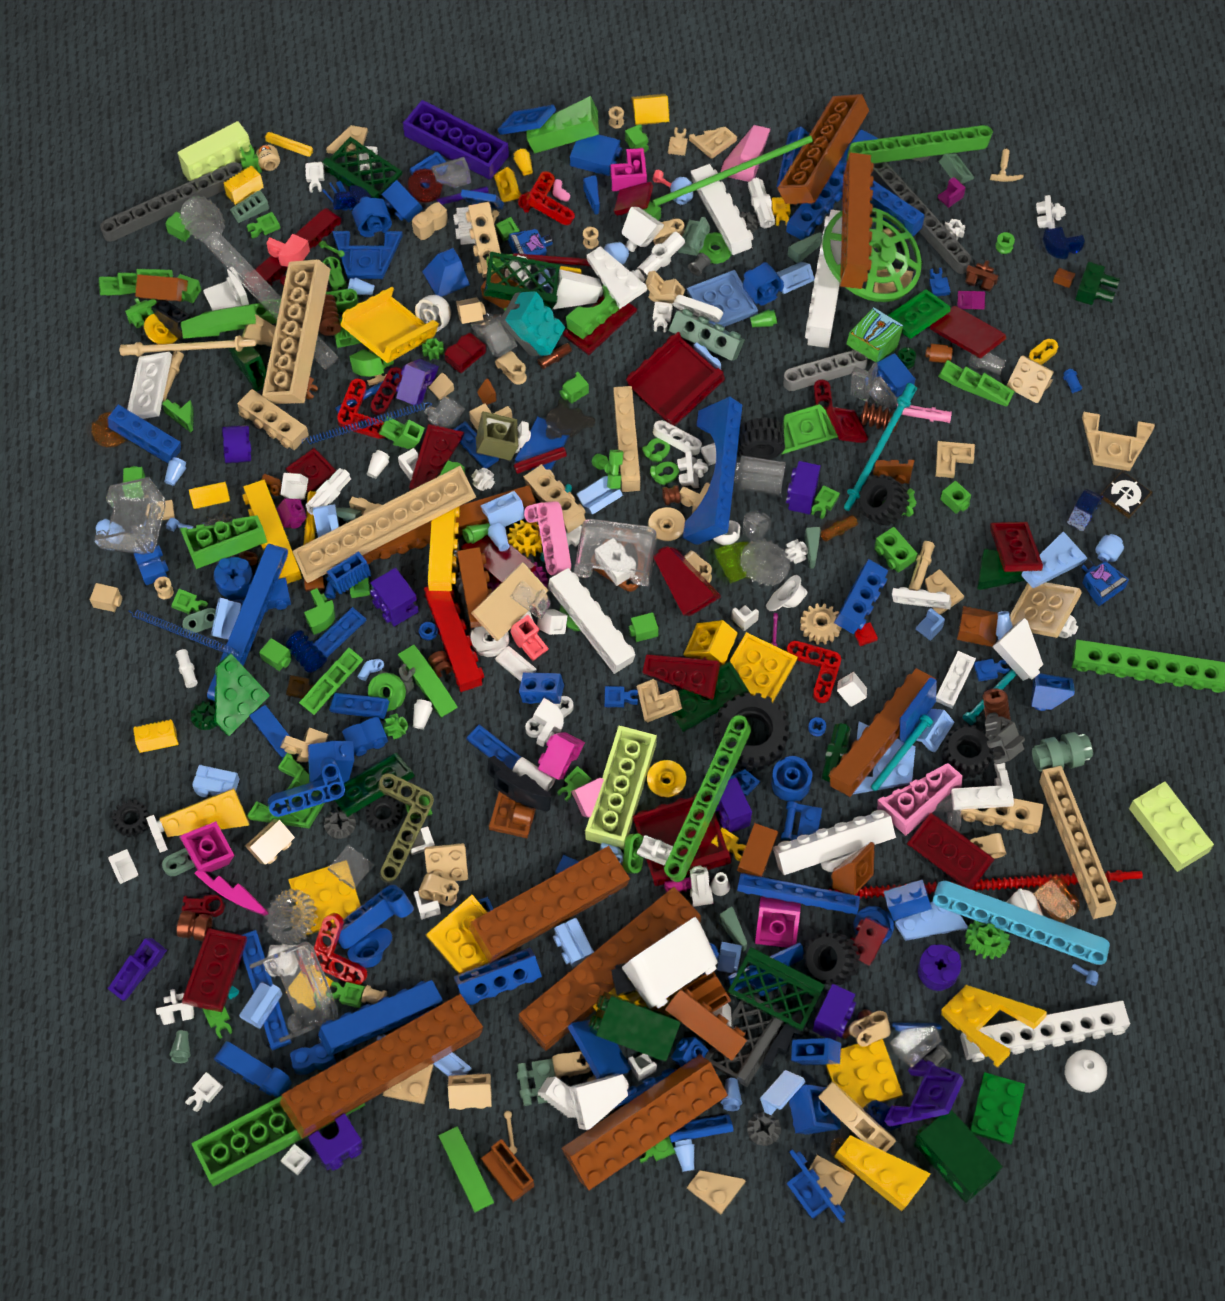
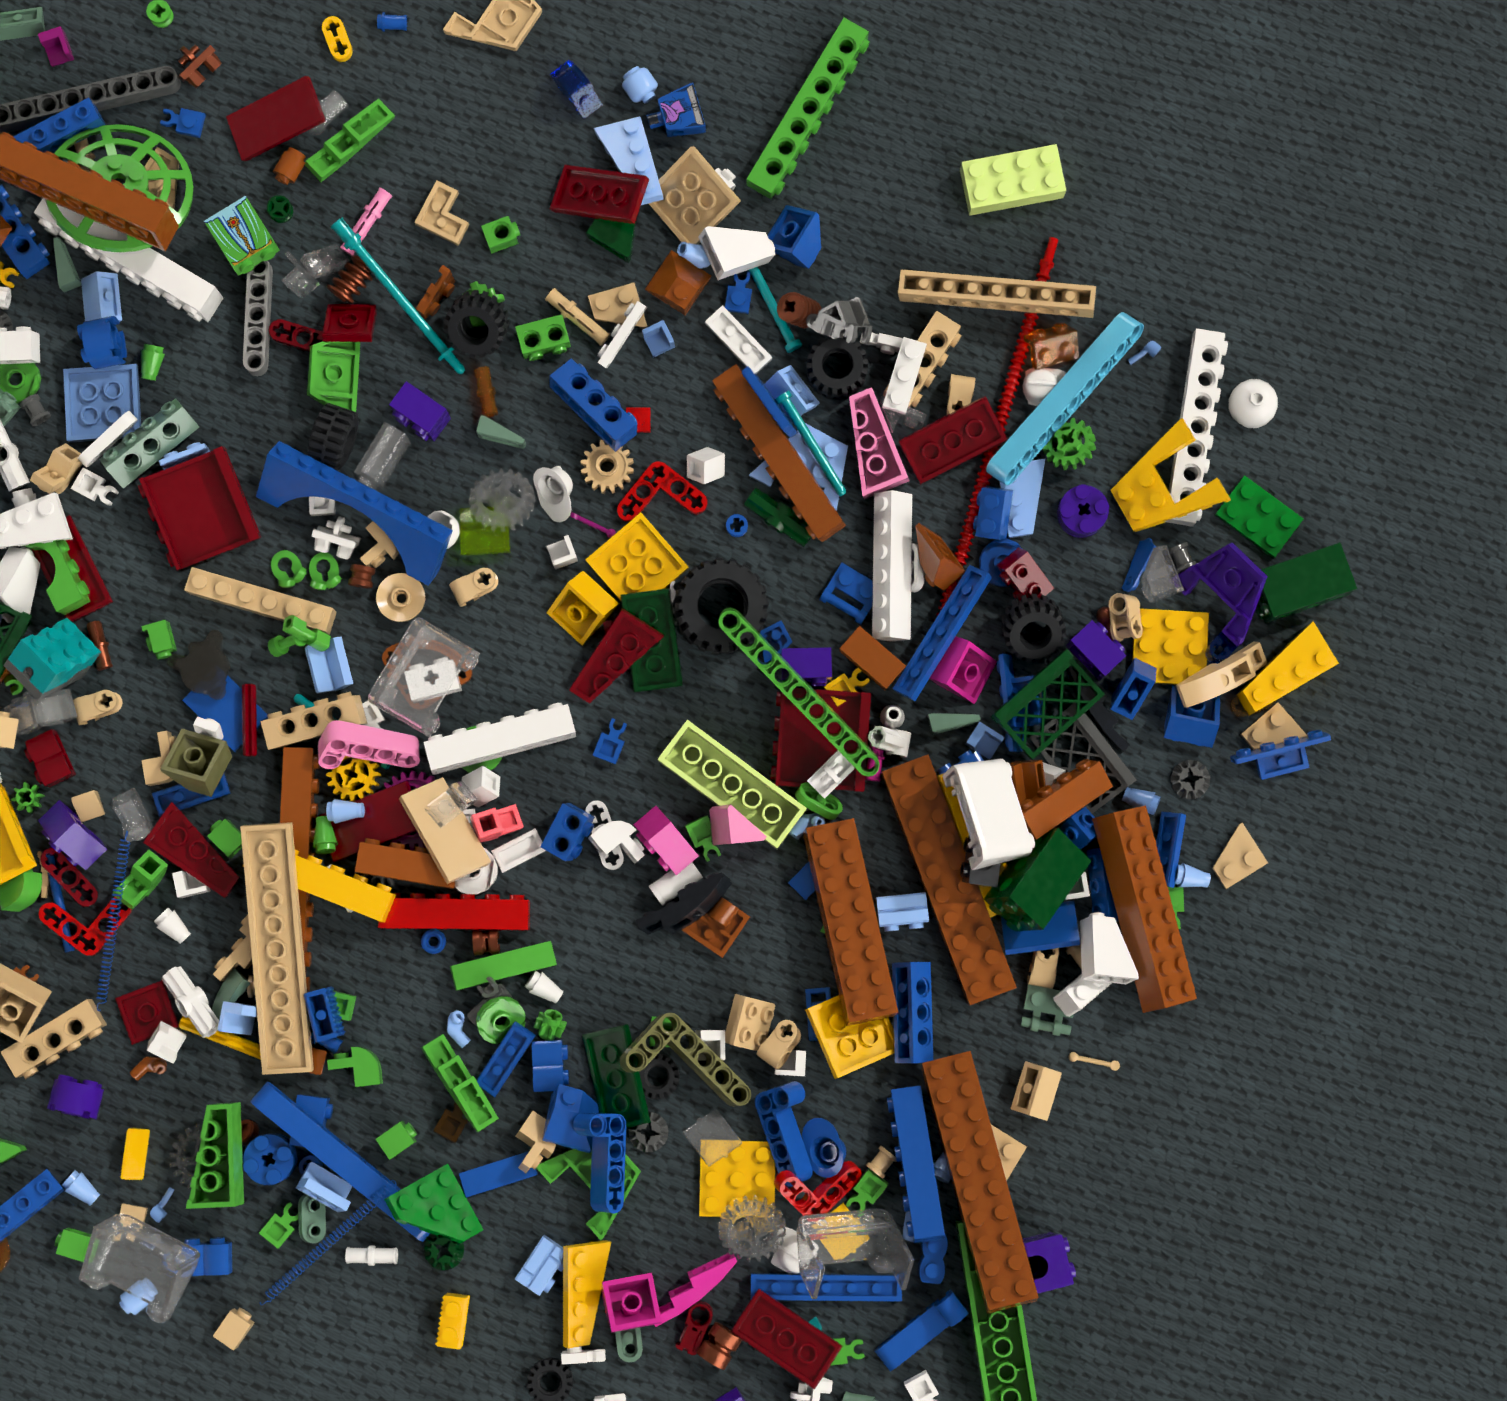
camera: 70 degrees left, 20 degrees up
(163, 587) = (241, 1249): tan bush -> none
(261, 504) = (201, 1091): yellow brick -> none
(261, 1004) = (847, 1297): light blue panel -> none
(270, 842) = (646, 1224): brick -> none
(291, 513) = (205, 1058): magenta brick -> none
(295, 1159) = (1041, 1312): white plate -> none
(305, 651) = (407, 1102): clear blue piece -> none
(339, 632) = (392, 1051): blue tile -> none
(393, 597) = (377, 969): dark purple piece -> none
(452, 1065) = (998, 1098): light blue tile -> none
(466, 1169) = (1121, 1125): bright green slope -> none
(483, 479) = (248, 800): white gear -> none
(487, 393) = (122, 751): dark orange slope -> none
(492, 746) = (620, 915): blue tile -> none
(504, 509) = (308, 791): light blue panel -> none
(507, 1171) = (1140, 1079): dark orange piece -> none
(643, 627) = (531, 679): bright green brick -> none
(654, 704) = (636, 707): tan plate -> none
(666, 770) = (738, 714): yellow dish -> none
(684, 444) = (300, 532): white beam -> none
(684, 581) = (492, 607): dark red slope -> none
(756, 525) = (446, 489): clear slope -> none
(781, 1091) = (1164, 744): light blue panel -> none
(789, 789) = (795, 569): blue brick -> none
(796, 551) = (500, 456): white gear -> none
(825, 500) = (441, 391): bright green plate -> none
(894, 374) = (300, 234): blue brick -> none
(919, 313) = (222, 167): green plate -> none
(955, 228) = (109, 62): white gear -> none
(971, 299) = (227, 92): magenta panel -> none
(1030, 379) = (373, 73): tan bracket -> none
(1070, 750) = (881, 250): sand green piece -> none
(1125, 494) = (572, 32): tile -> none

